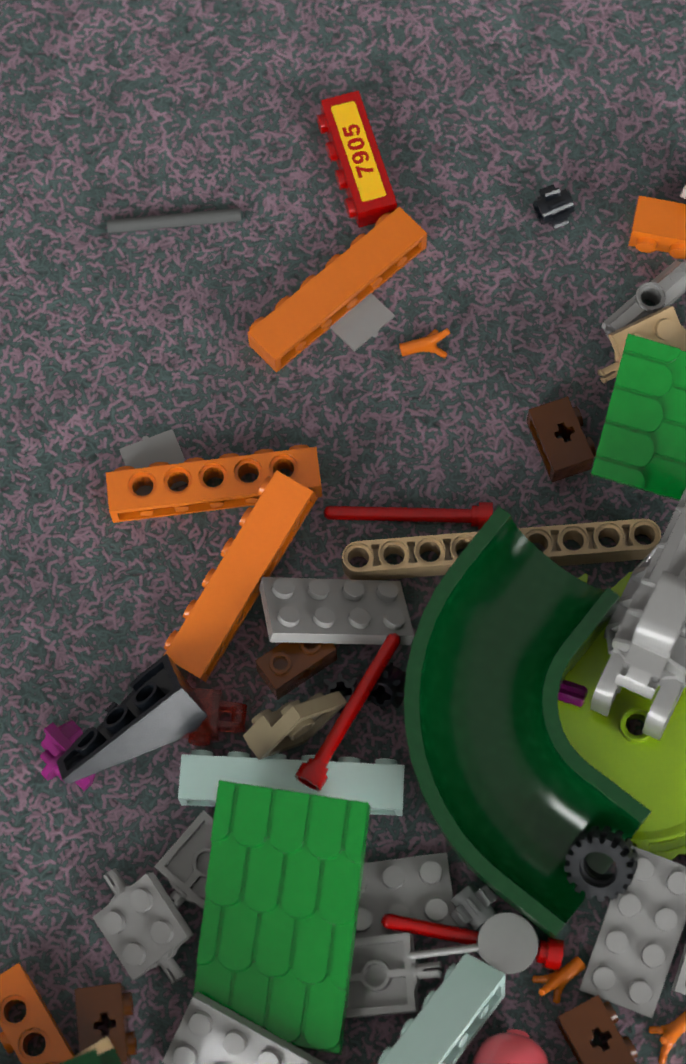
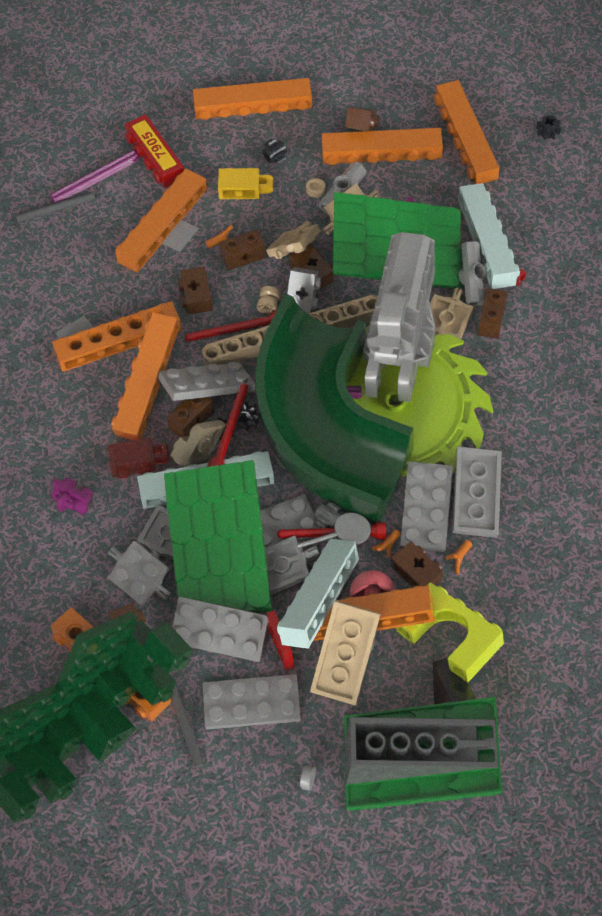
camera: 15 degrees left, 10 degrees down
(151, 716) = (116, 453): black wedge -> none
(250, 181) = (95, 177): none -> magenta axle
(363, 413) = (196, 290): none -> reddish brown brick
(455, 377) = (242, 249): none -> reddish brown brick
(475, 480) = (269, 298): none -> tan wheel
(487, 253) = (243, 183): none -> yellow brick
(535, 465) = (306, 279): none -> light grey brick
(541, 99) = (252, 98): none -> orange brick
(542, 385) = (294, 240): none -> tan plate
(588, 879) = (383, 477): black tyre -> none
(605, 288) = (315, 187): none -> tan tile

